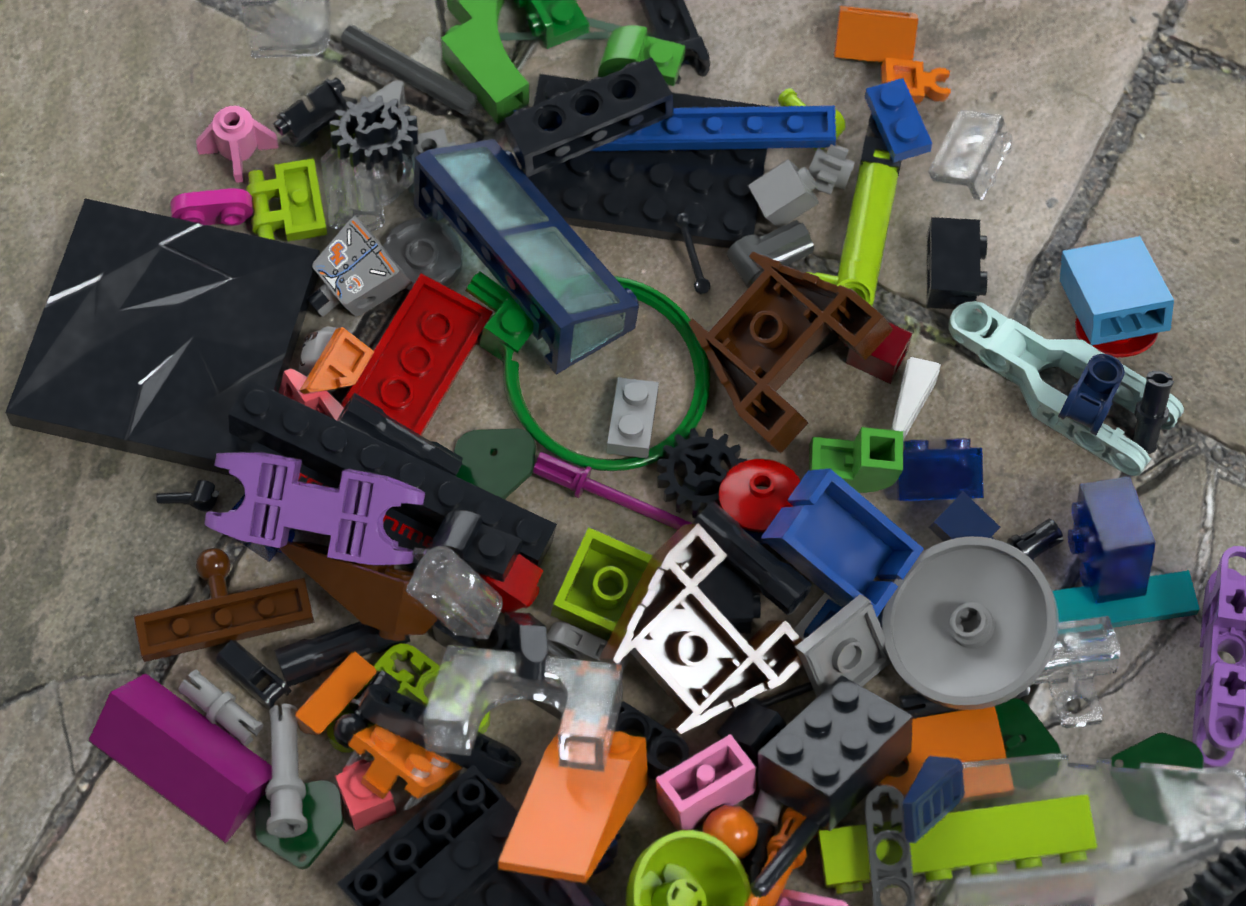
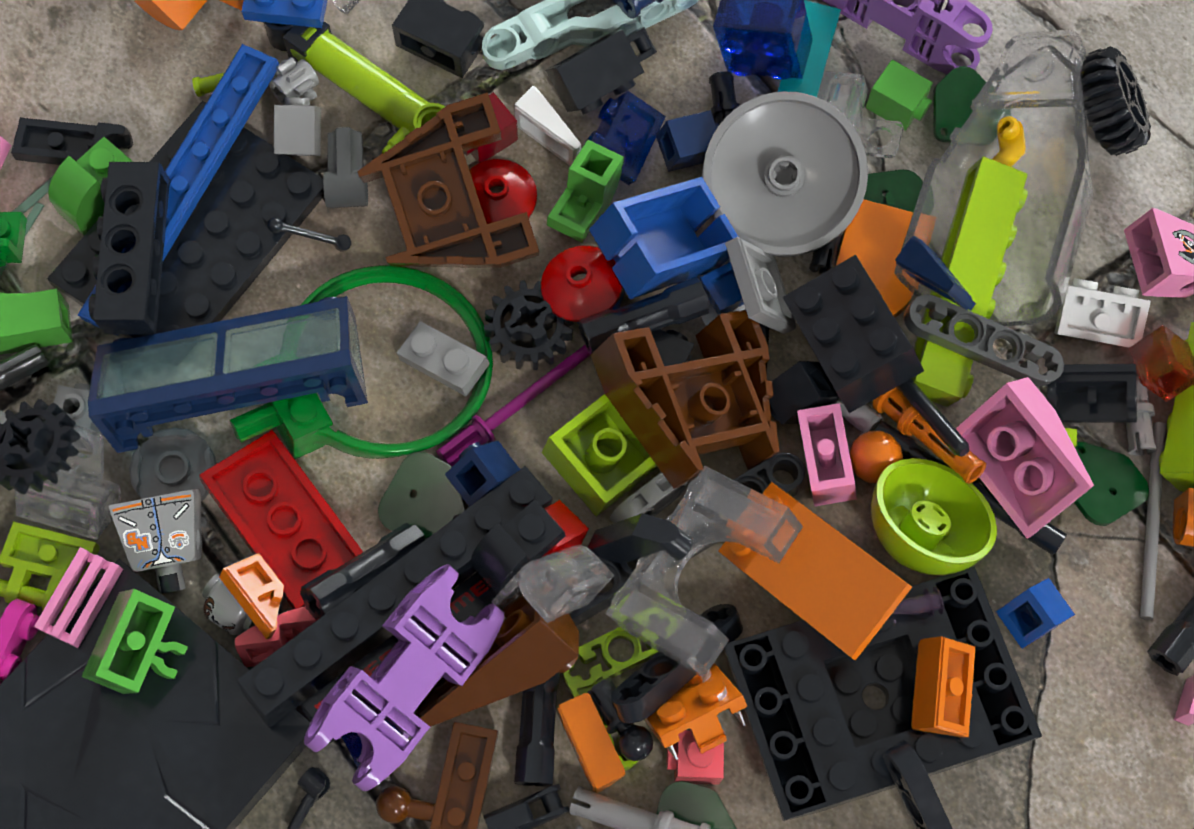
camera: 65 degrees left, 5 degrees up
(245, 288) = (130, 643): none -> bright green brick
(270, 229) = (64, 589): none -> bright pink tile
(539, 492) = (481, 470): none -> dark blue brick
(829, 407) = (518, 192): none -> red dish
(995, 416) = (600, 69): none -> black brick
(1130, 826) = (1010, 140): none -> yellow arm
(1132, 703) = (900, 95): none -> bright green brick

